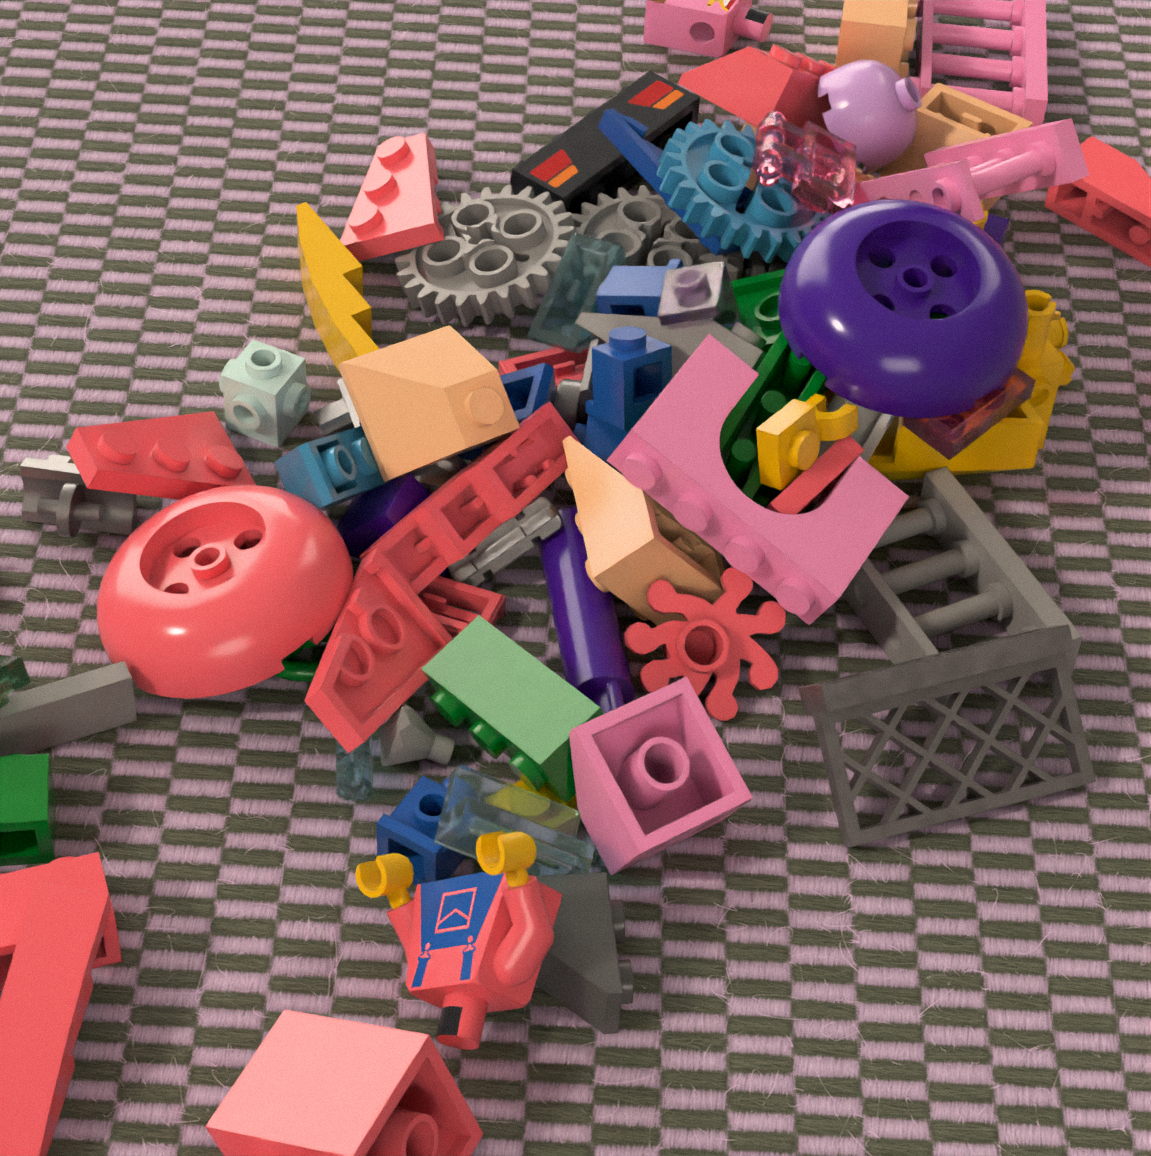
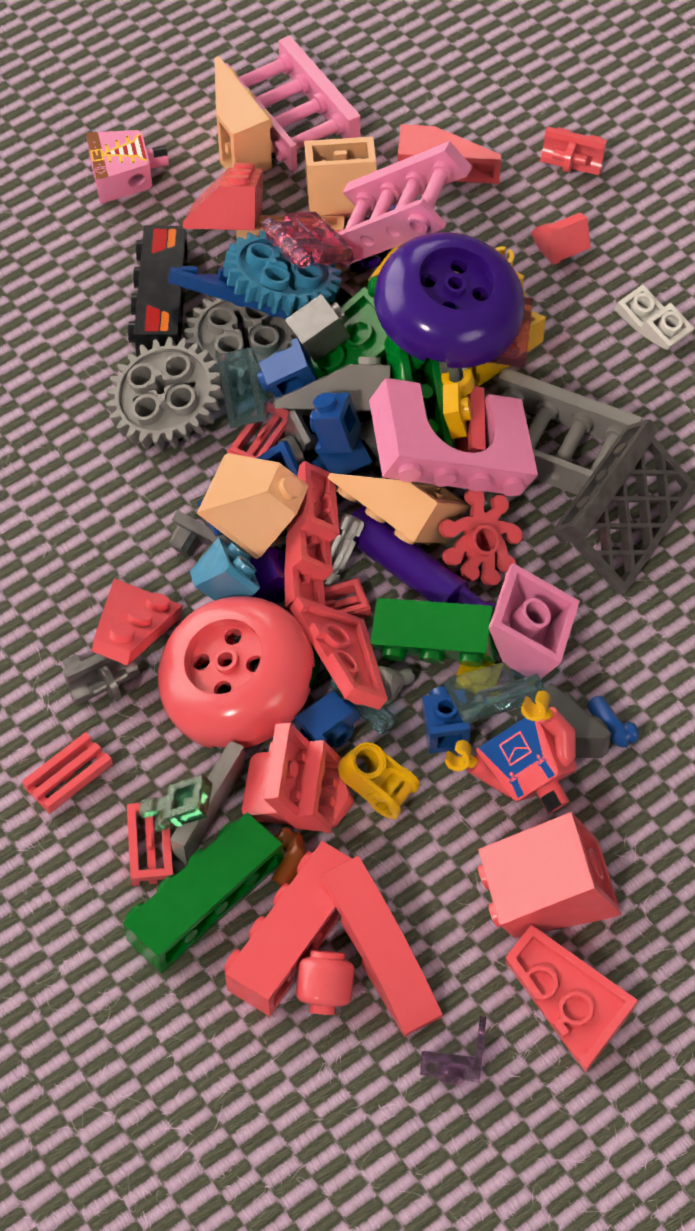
camera: 35 degrees left, 10 degrees up
(77, 839) = (293, 852): none -> dark orange arm
(157, 770) = (296, 783): none -> coral piece
(264, 848) = (382, 780): none -> yellow piece
(265, 392) = (135, 549): light aqua brick -> none
(271, 732) = (328, 720): none -> blue brick
(333, 289) = (101, 467): yellow slope -> none
(396, 201) = (83, 392): wing -> none
(650, 984) = (620, 733): none -> blue arm
(698, 294) = (328, 355): clear purple bracket -> none
(746, 260) = (319, 327): none -> brick
(871, 110) = (294, 181): lavender cylinder -> none

